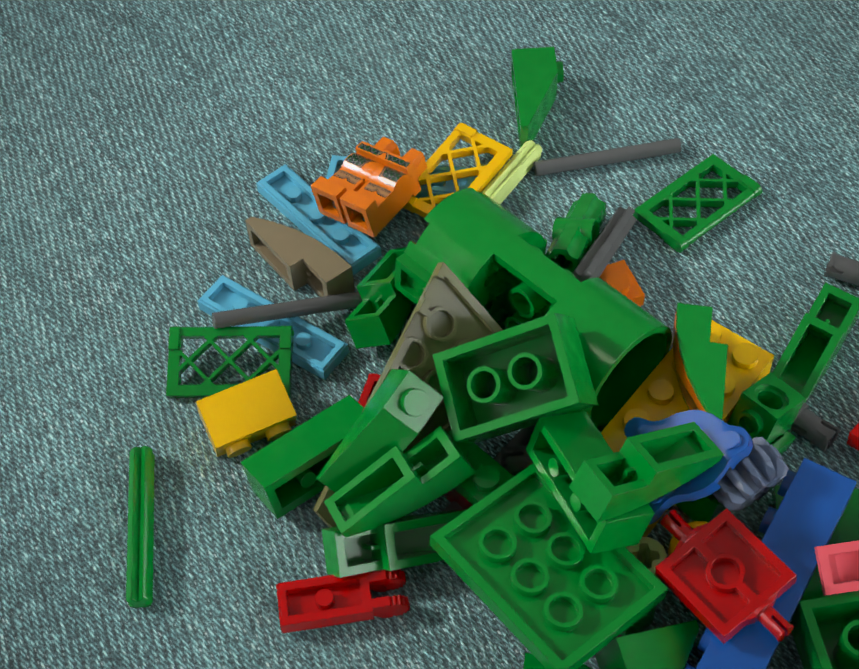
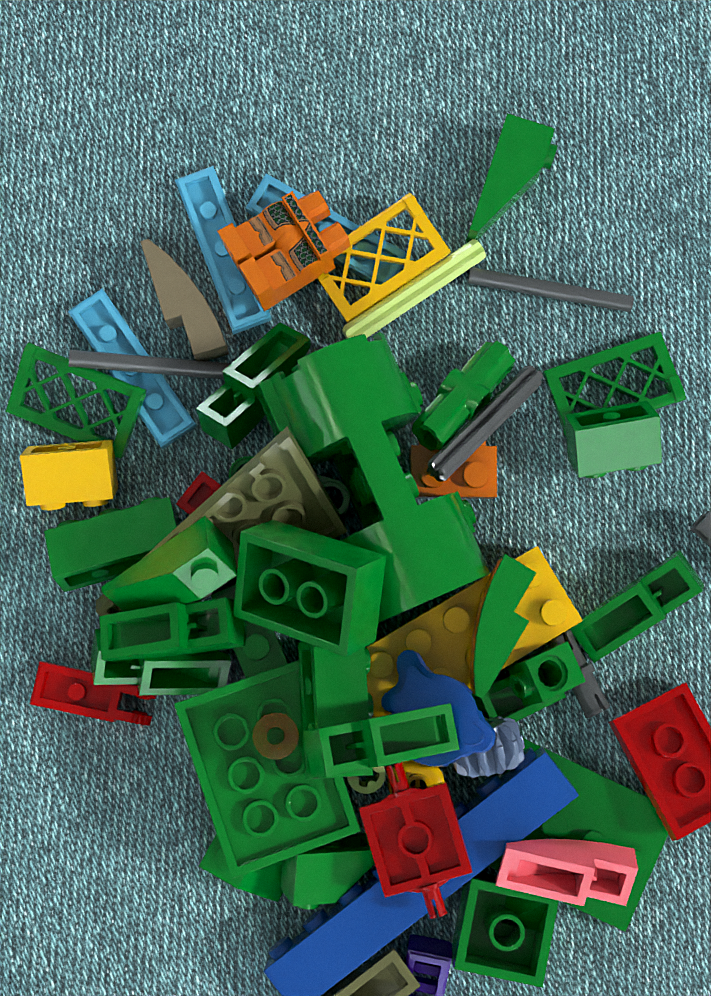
camera: 10 degrees right, 30 degrees up
(543, 513) = (288, 743): none -> clear orange plate
(720, 227) = (613, 439): none -> brick

